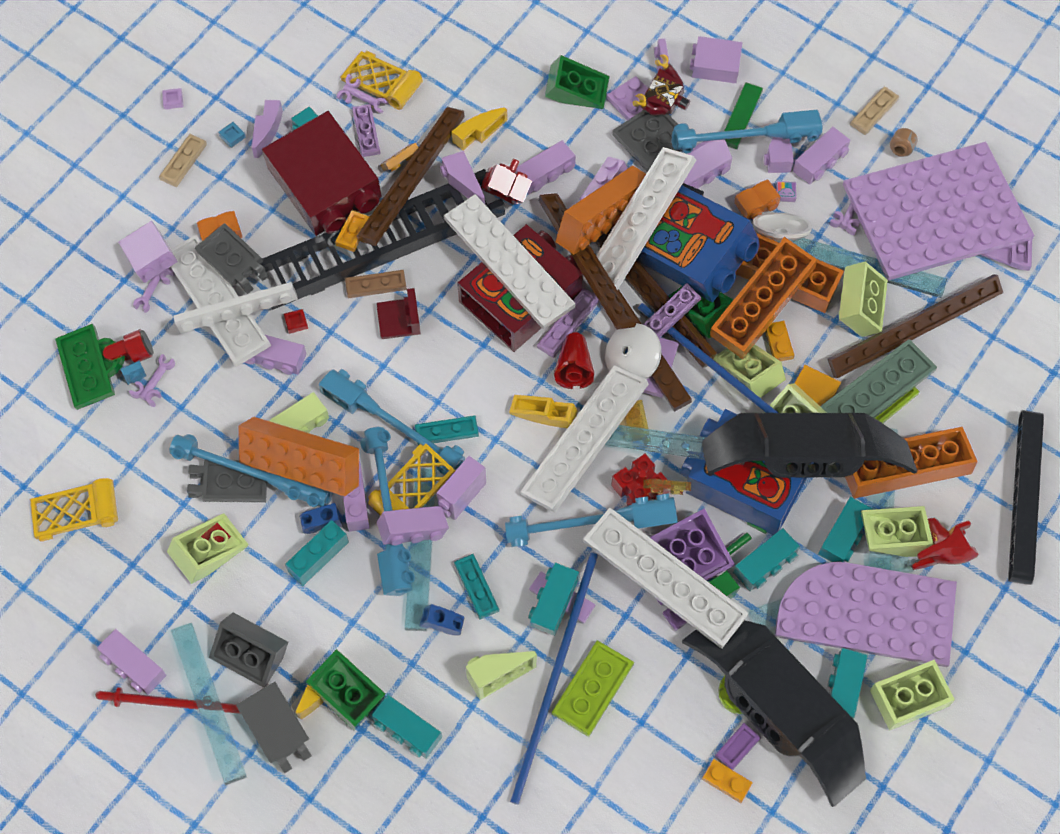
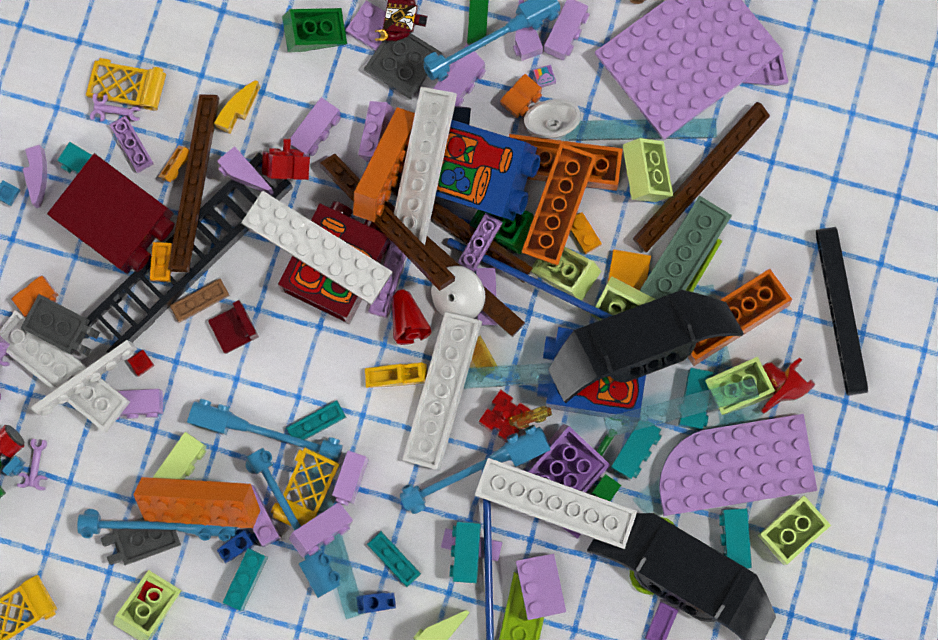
camera: 15 degrees left, 15 degrees up
(620, 661) = (540, 586): none -> lavender slope
(828, 524) = (681, 407): none -> clear light blue tile
(845, 221) = (607, 90): lavender bar -> none

